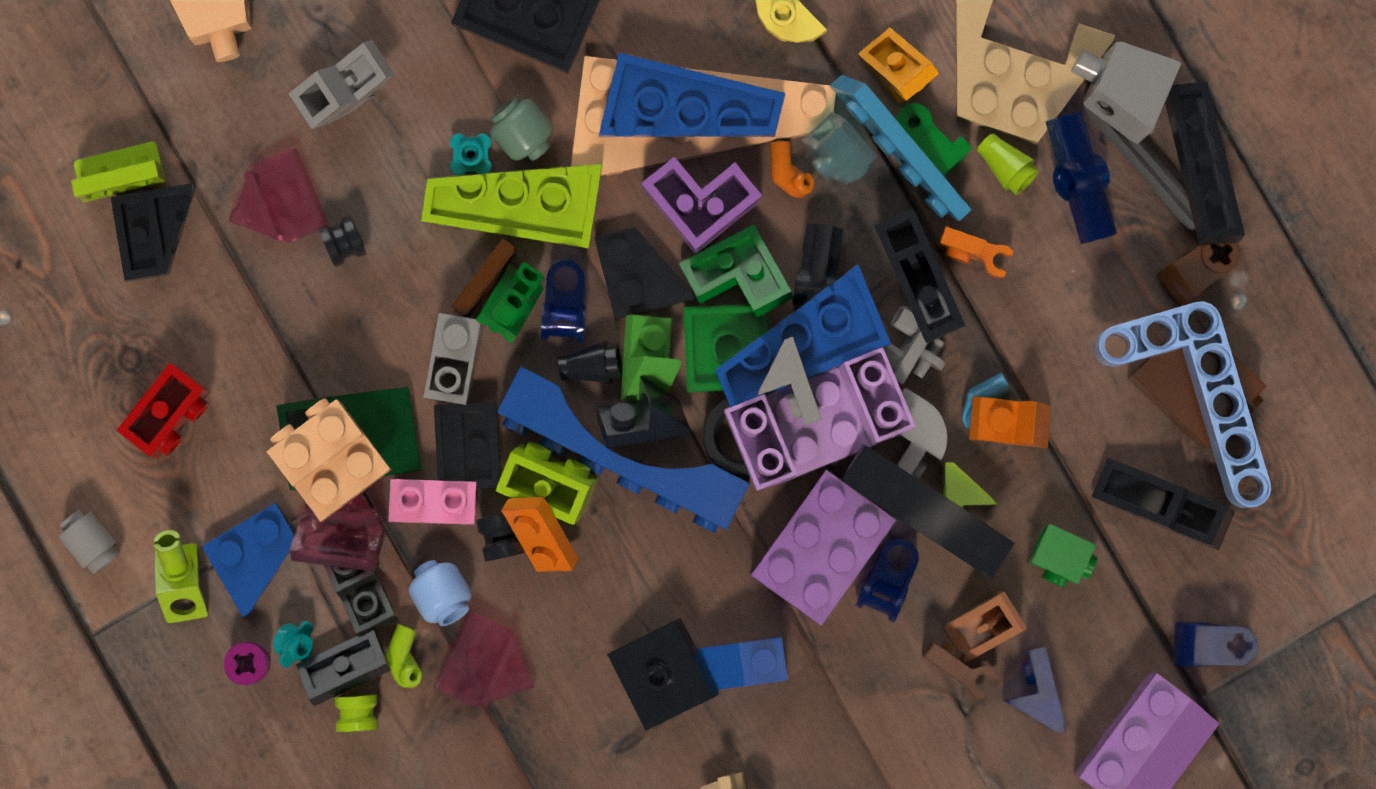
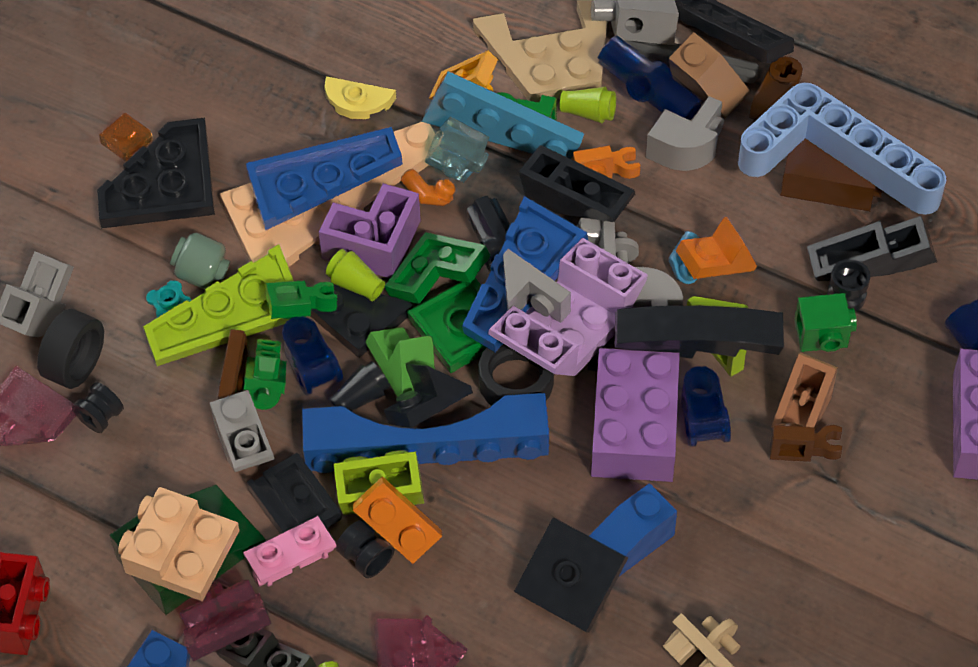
camera: 30 degrees left, 30 degrees down
(346, 169) = (70, 348): none -> black tyre
(440, 592) = (340, 618): light blue head -> none
(578, 240) = (297, 300): none -> green plate
(654, 242) = (351, 273): none -> lime cone
(1043, 703) = (888, 429): clear blue slope -> none
(1066, 270) = (686, 143): none -> light grey brick
(1120, 527) = (852, 279): none -> black wheel
(1142, 209) = (707, 73): none -> medium nougat slope

